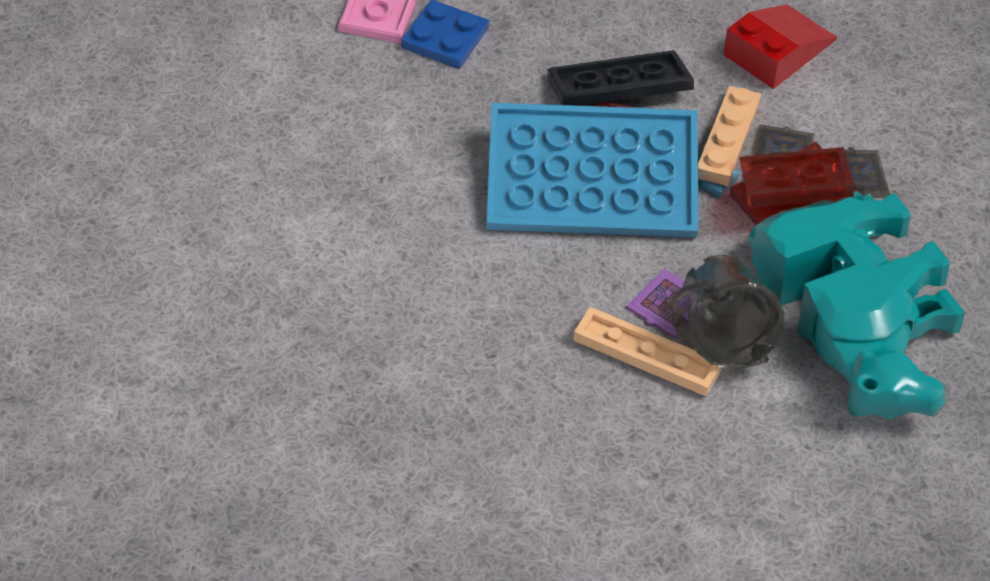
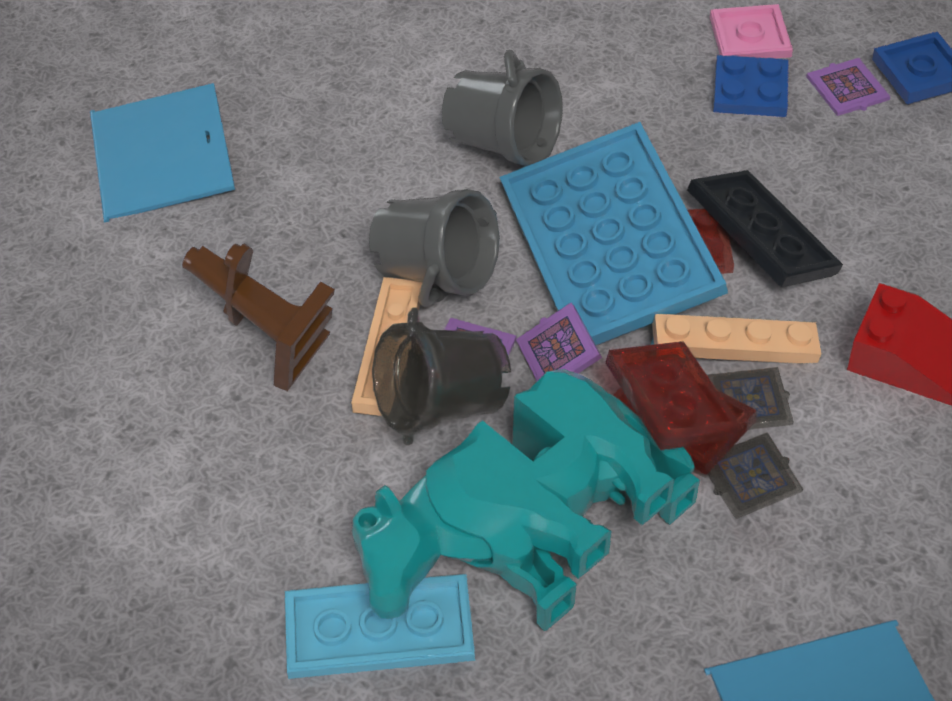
camera: 75 degrees right, 0 degrees up
(314, 472) = (160, 152): none -> dark azure piece
(431, 185) = (506, 111): none -> dark grey piece
(576, 274) = (438, 242): none -> dark grey piece
(628, 394) = (294, 328): none -> reddish brown piece
(694, 238) = (559, 344): none -> piece
(924, 450) = (339, 632): none -> medium azure tile

